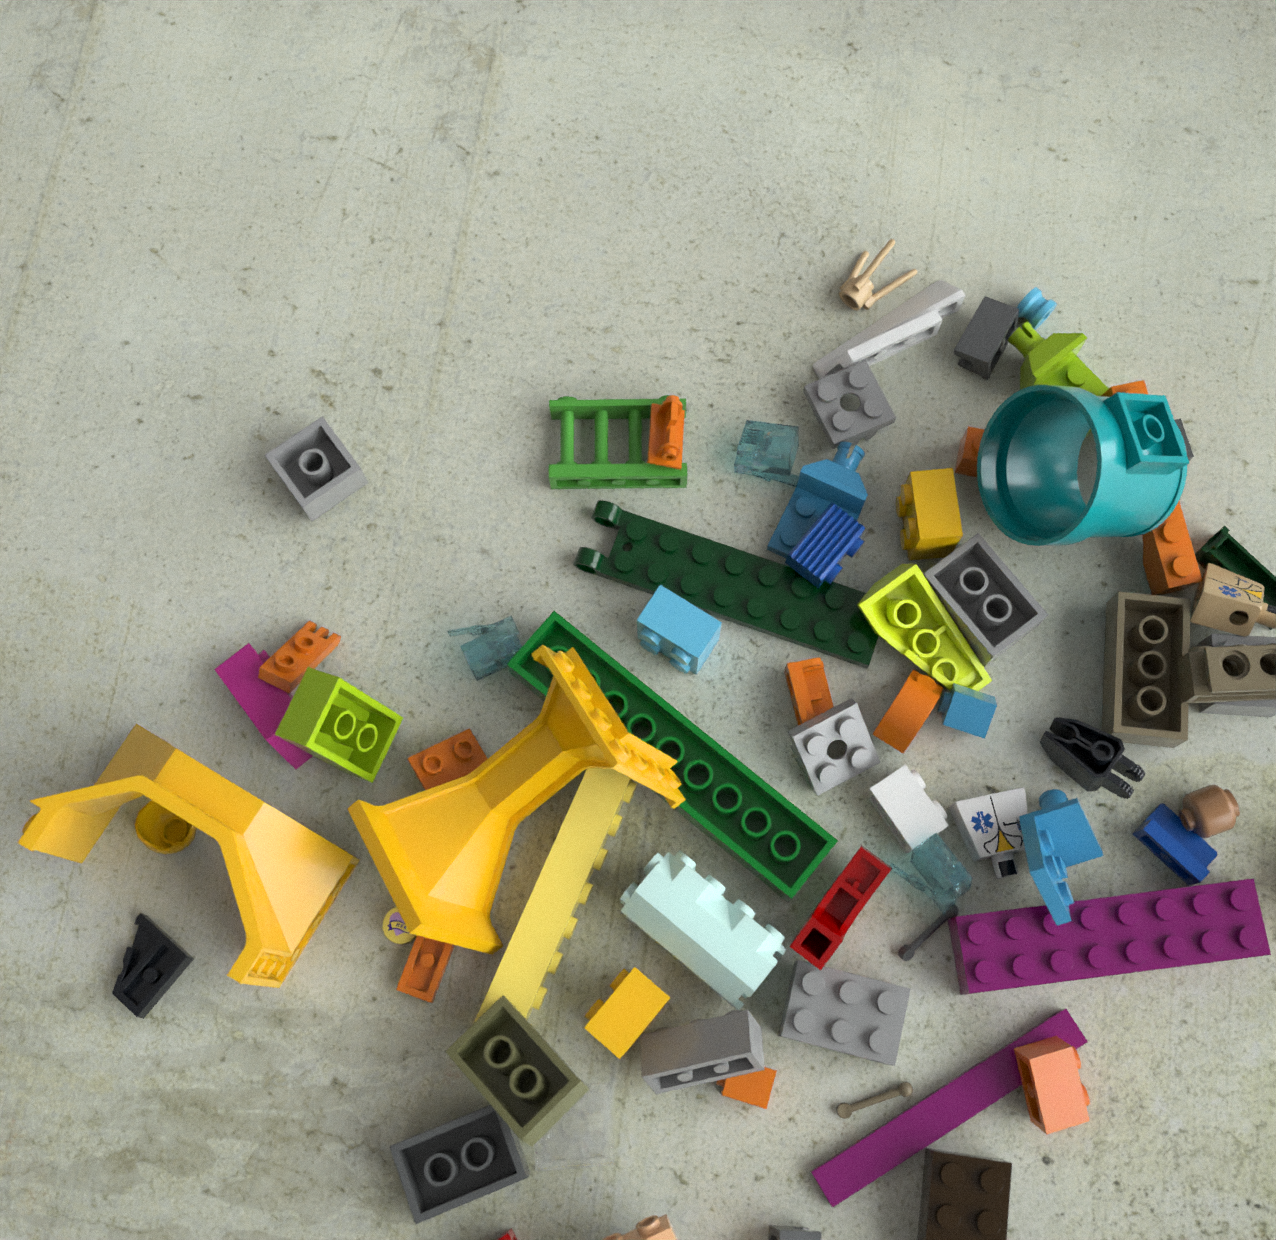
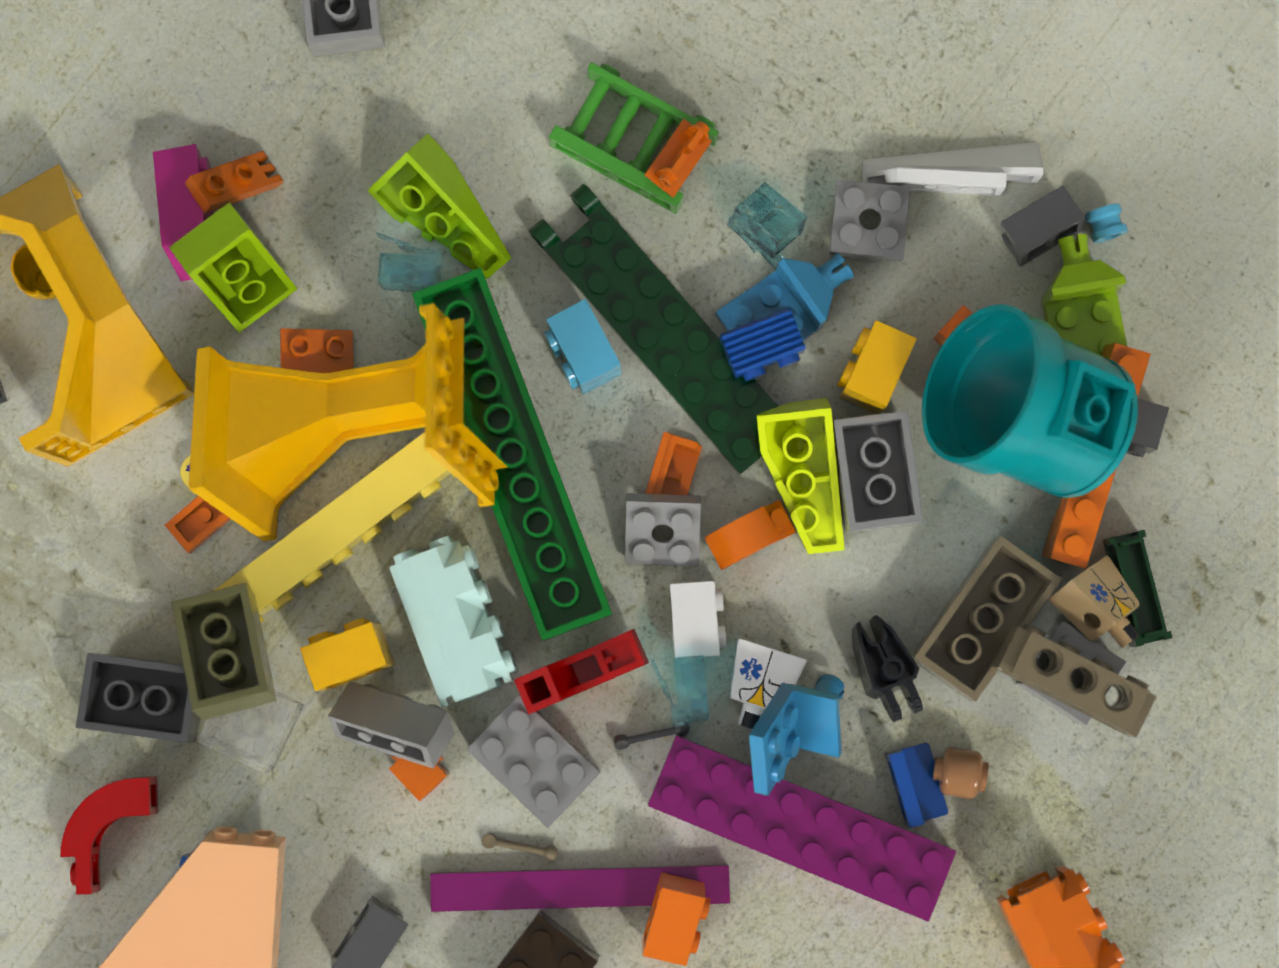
camera: 30 degrees right, 10 degrees up
(483, 581) = (436, 199): none -> lime wedge
(858, 290) = (949, 108): tan plant -> none
(967, 710) = (802, 563): dark azure brick -> none

